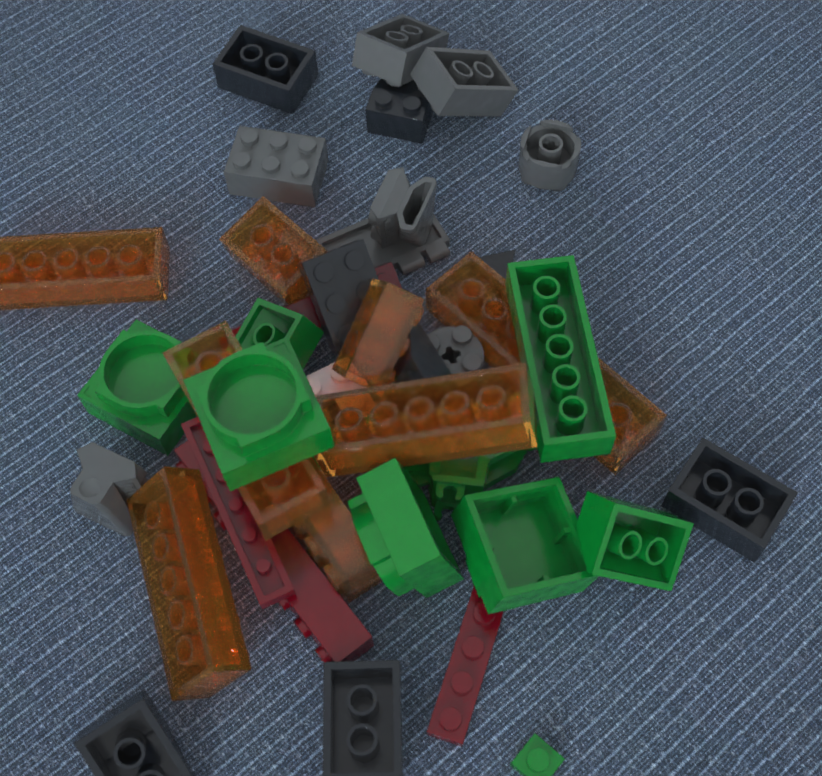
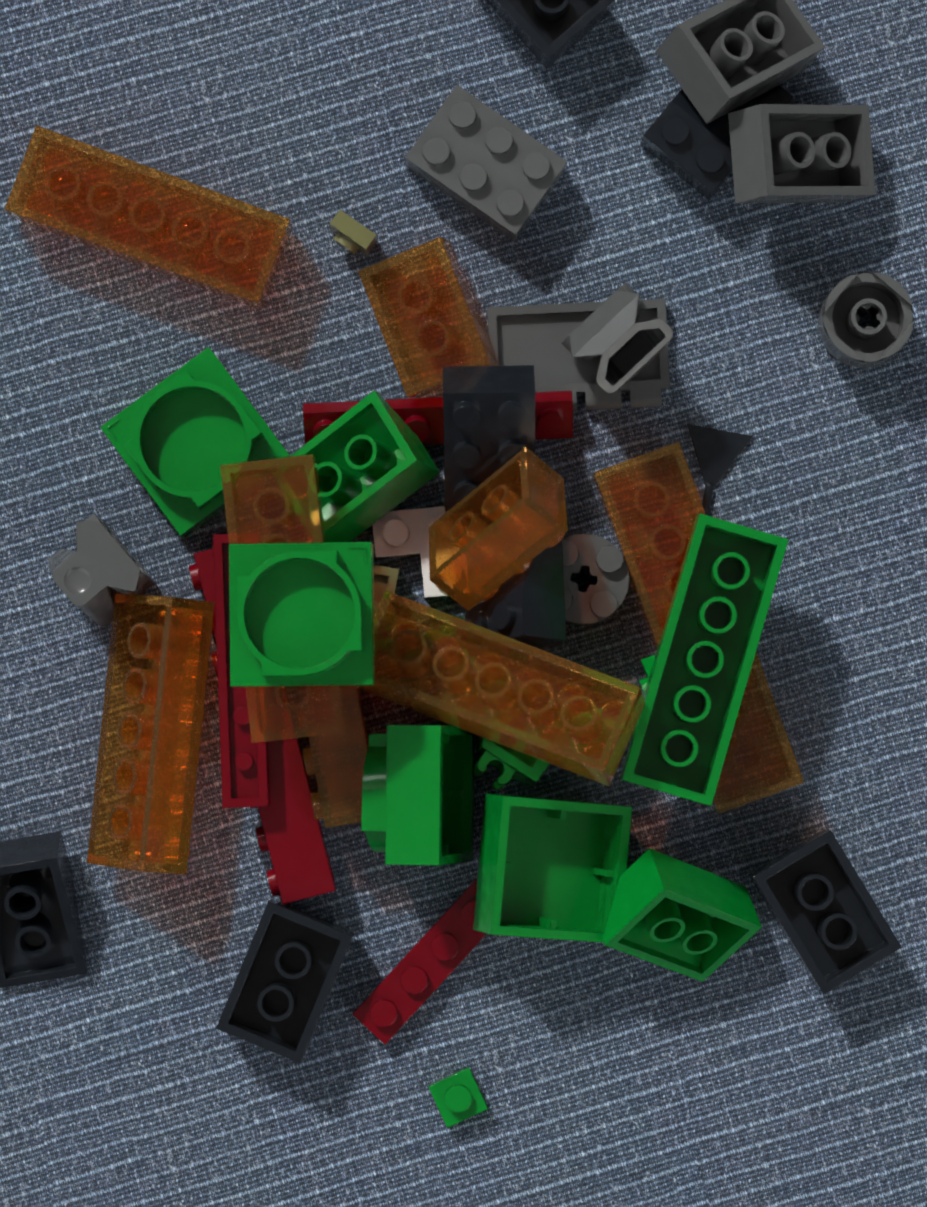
camera: 20 degrees right, 25 degrees up
(208, 231) = (351, 234): none -> olive plate

